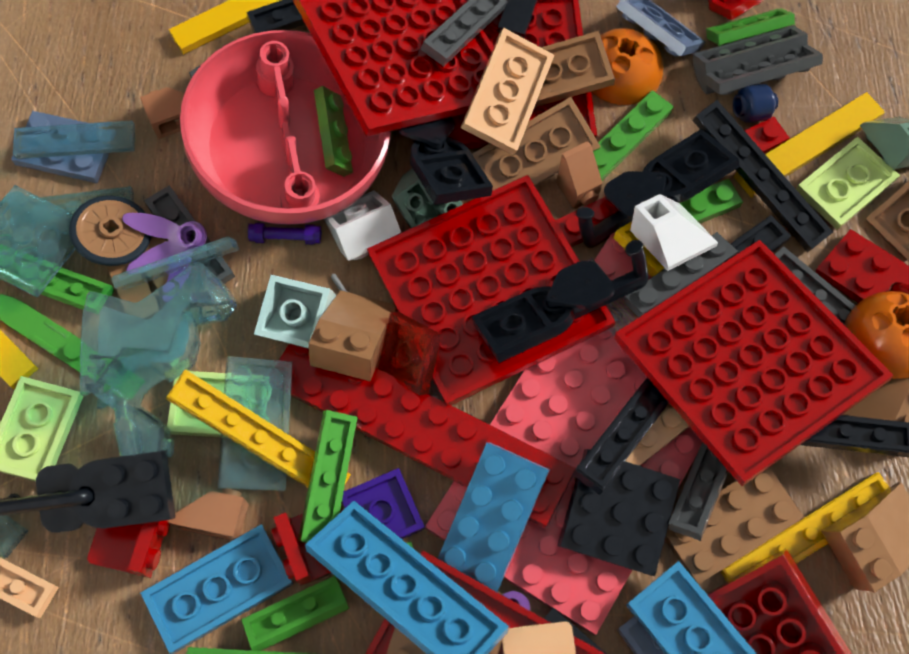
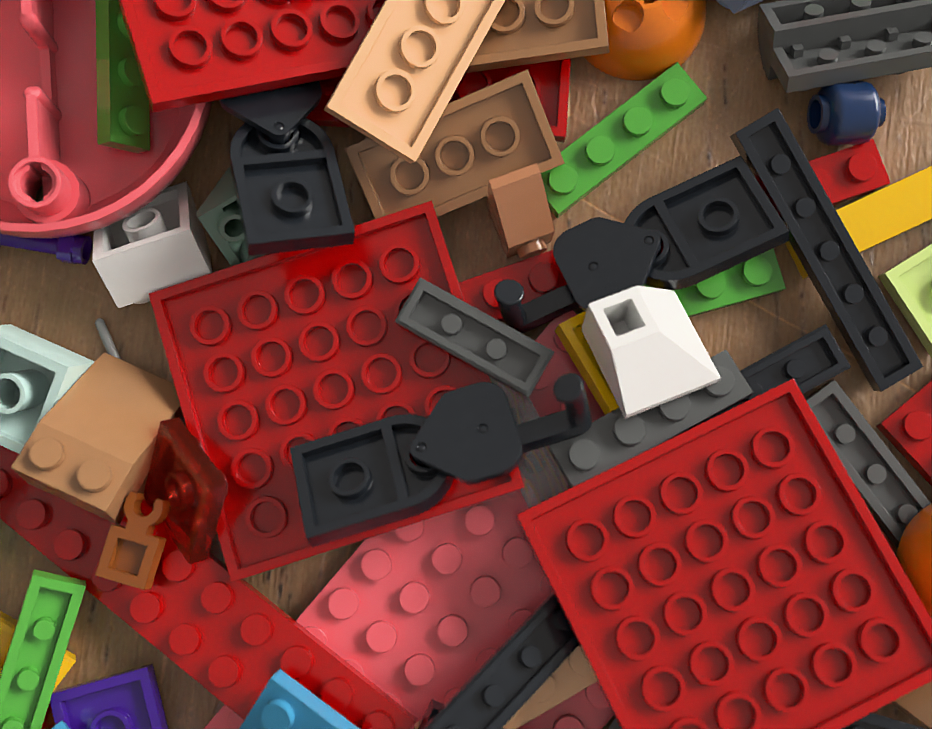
camera: 10 degrees right, 15 degrees up
(384, 390) = (133, 551): none -> dark orange plate
(568, 241) = (474, 337): none -> dark grey tile

